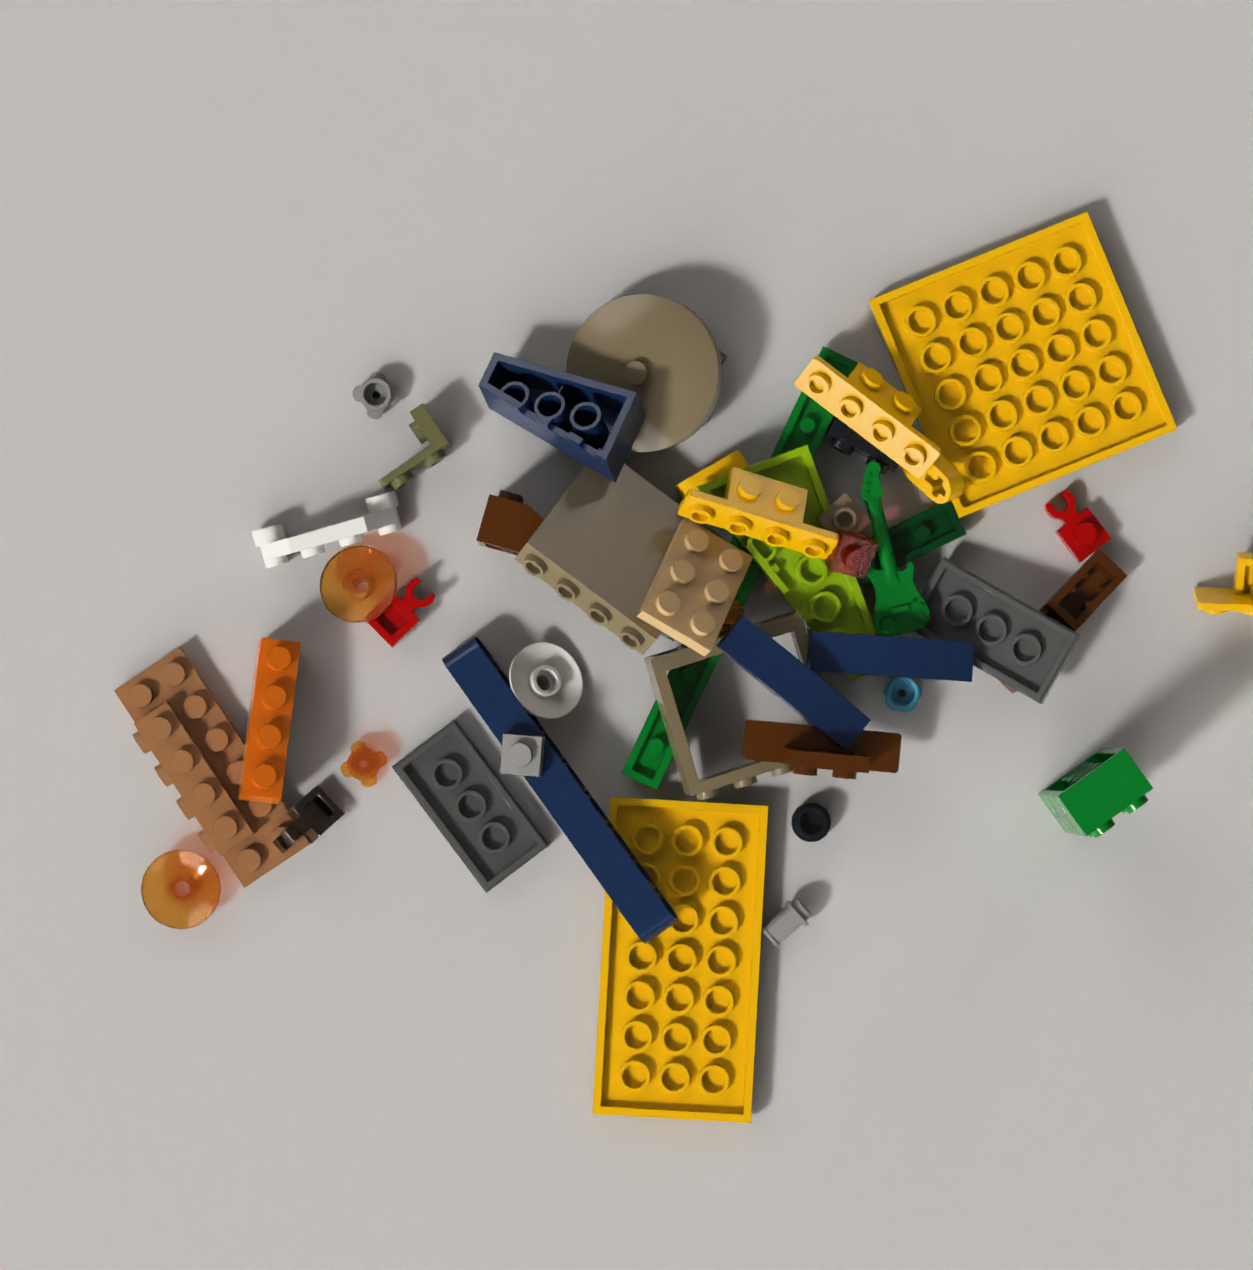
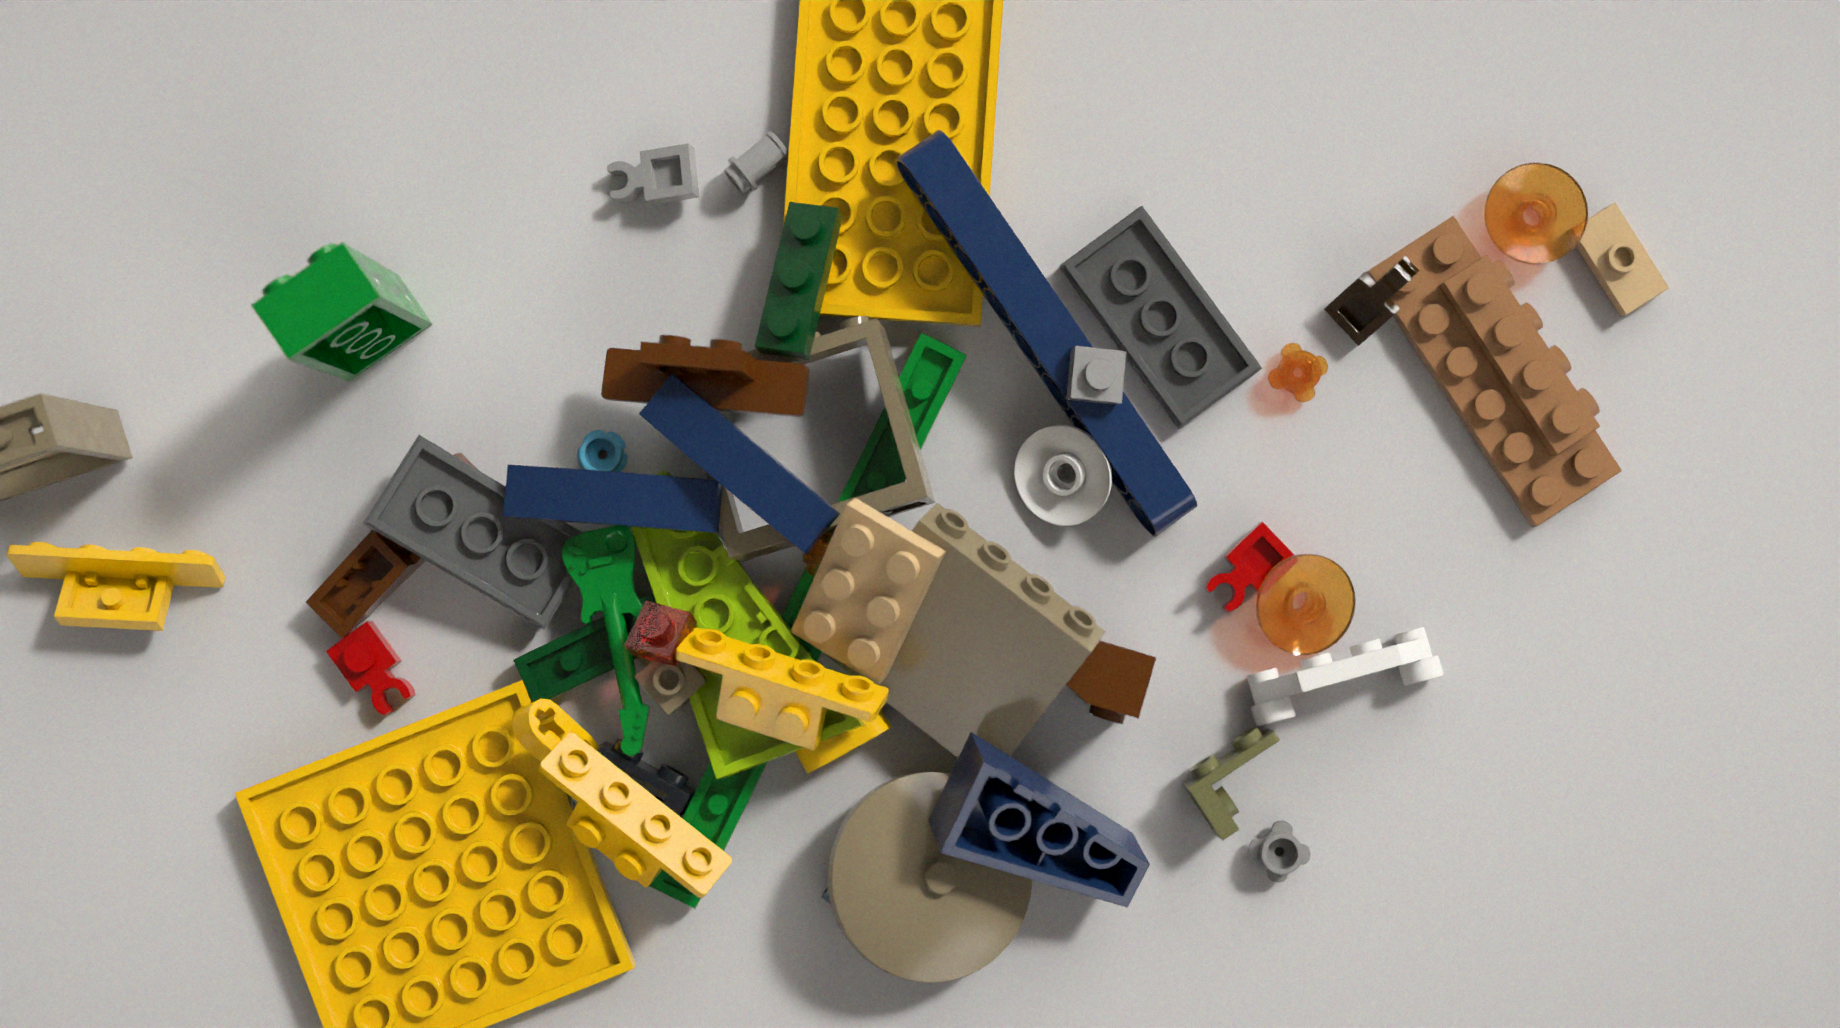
camera: 175 degrees left, 0 degrees up
(114, 854) = (1620, 261): none -> tan plate
(269, 721) = (1425, 426): orange brick -> none
(751, 826) = (799, 280): none -> dark green plate
(811, 822) = (723, 290): black plate -> none
(858, 910) = (664, 176): none -> light grey plate

